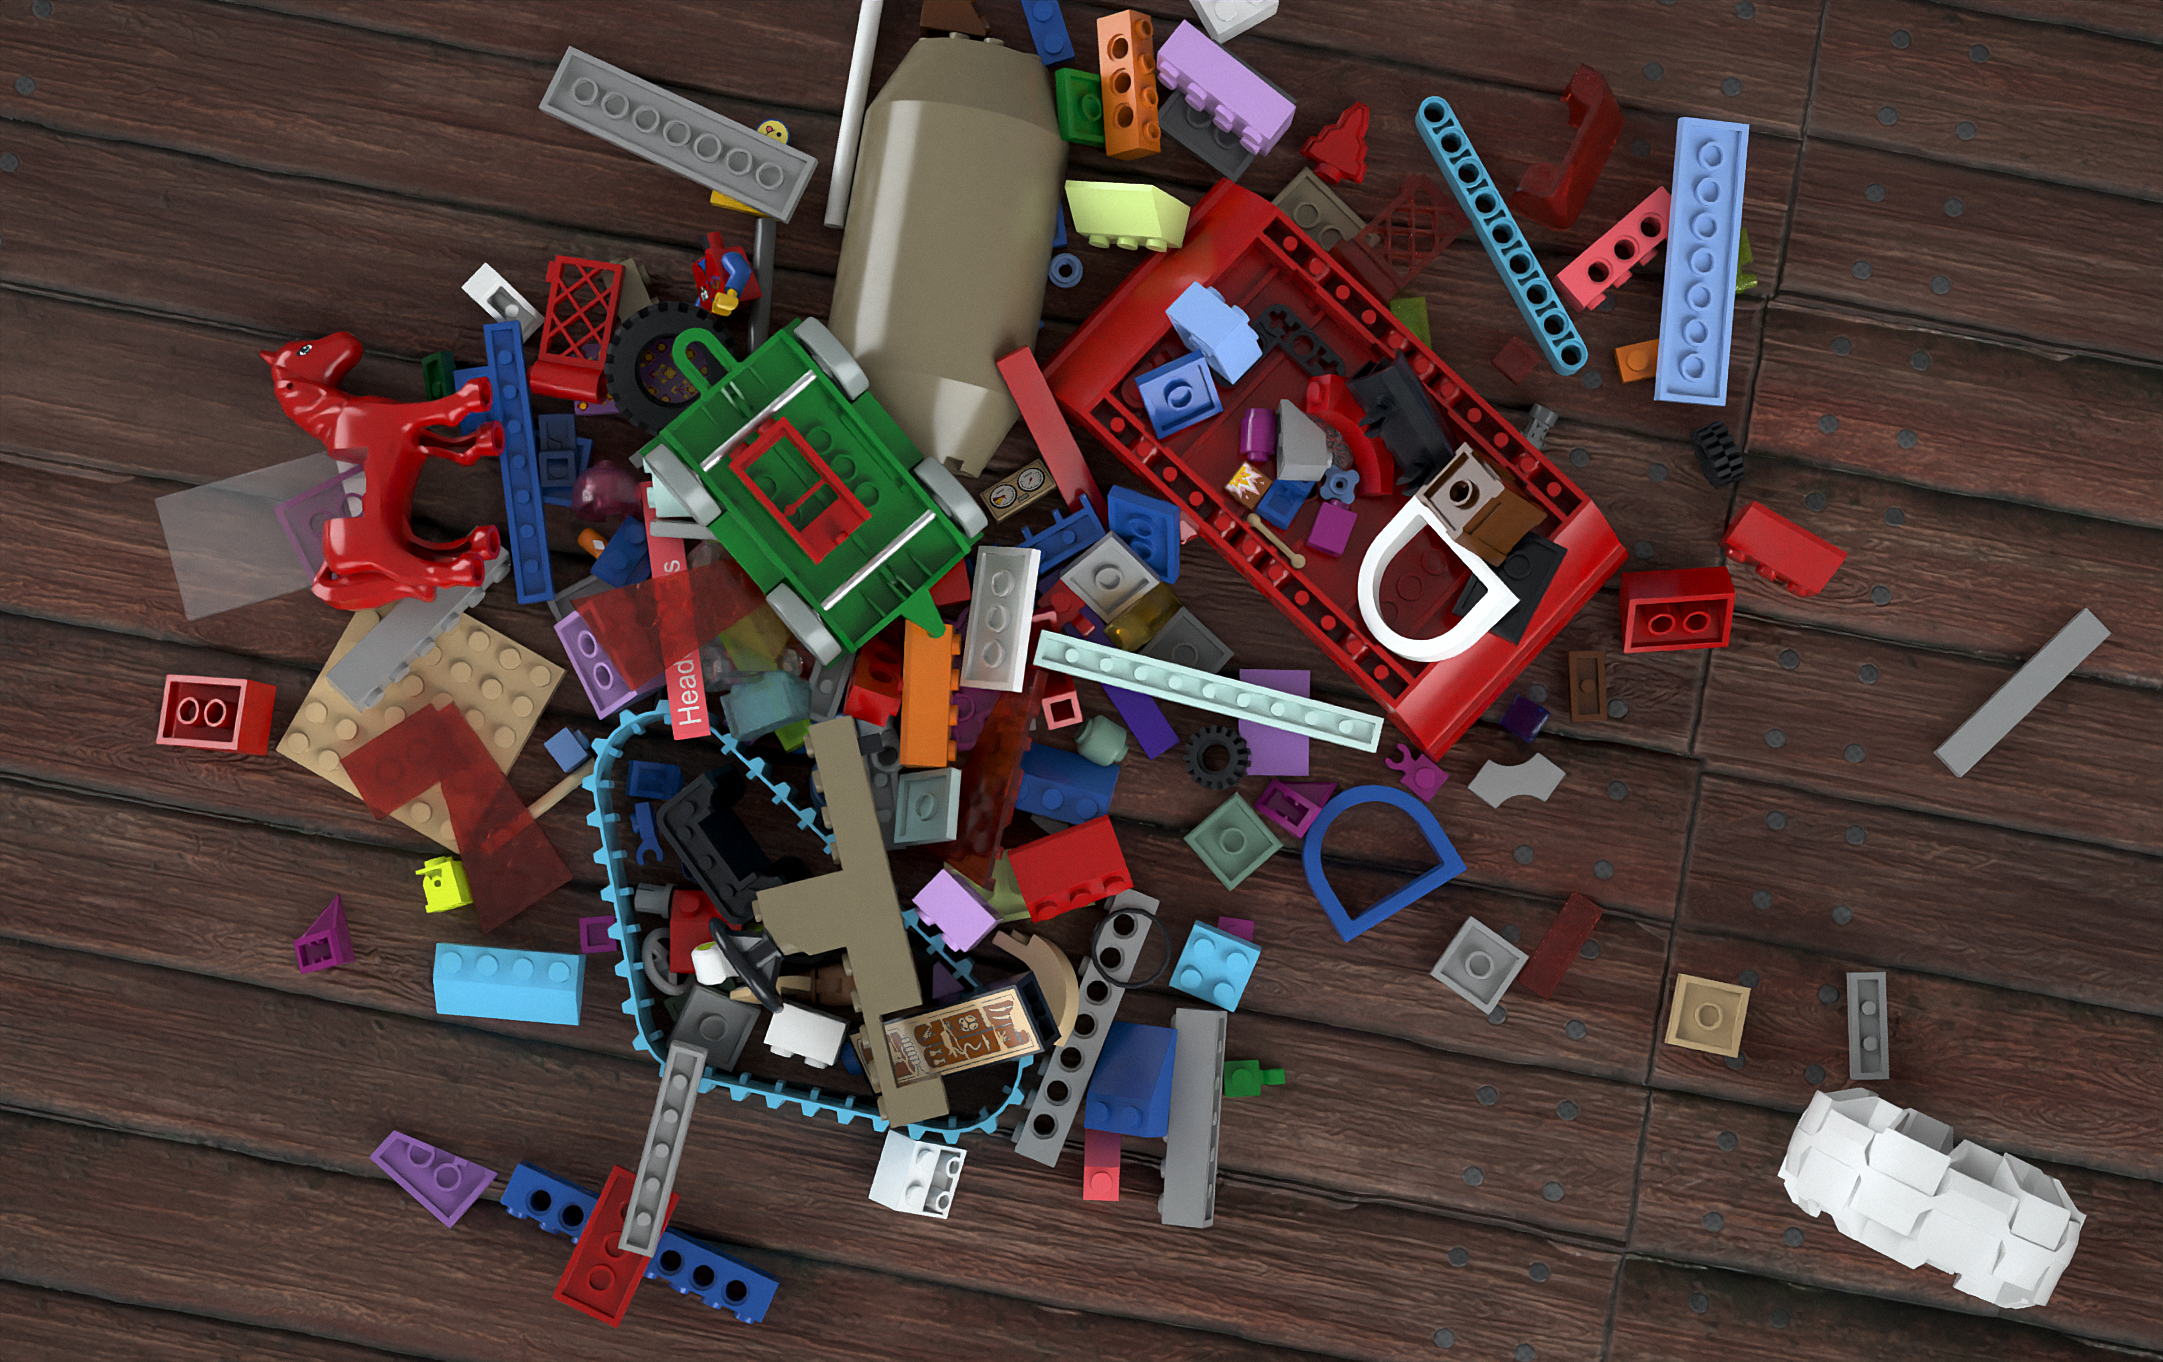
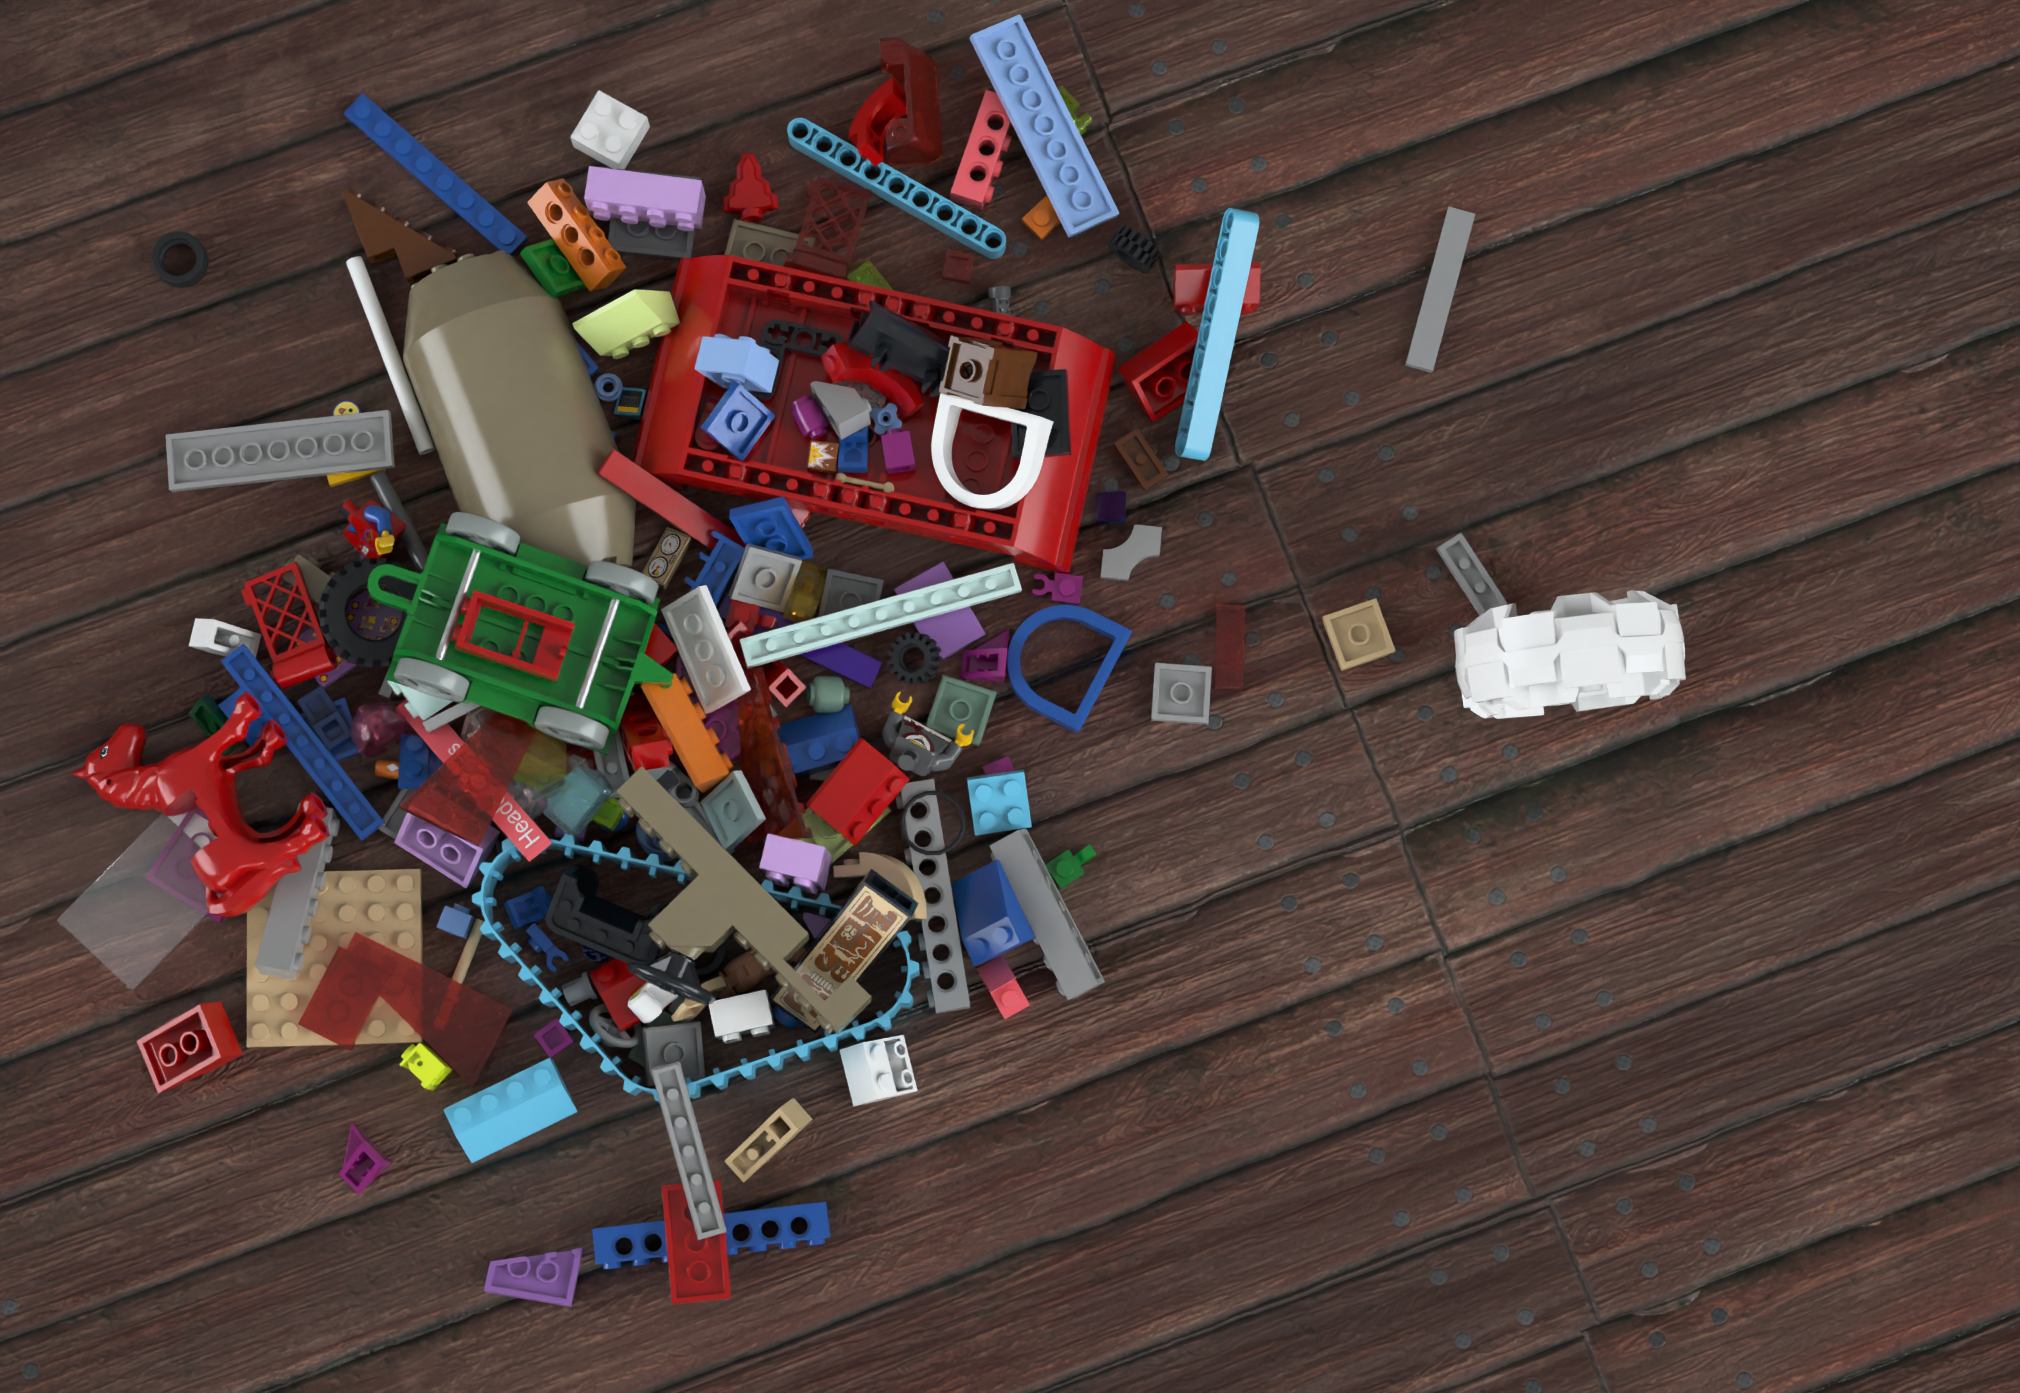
camera: 30 degrees left, 5 degrees down
(759, 1178) = (768, 1139): none -> tan slope
(1079, 302) = (631, 403): none -> slope
(1164, 856) = (918, 746): none -> dark grey torso
(1522, 145) = (873, 117): none -> red arch
(1754, 602) = (1217, 334): none -> medium azure beam

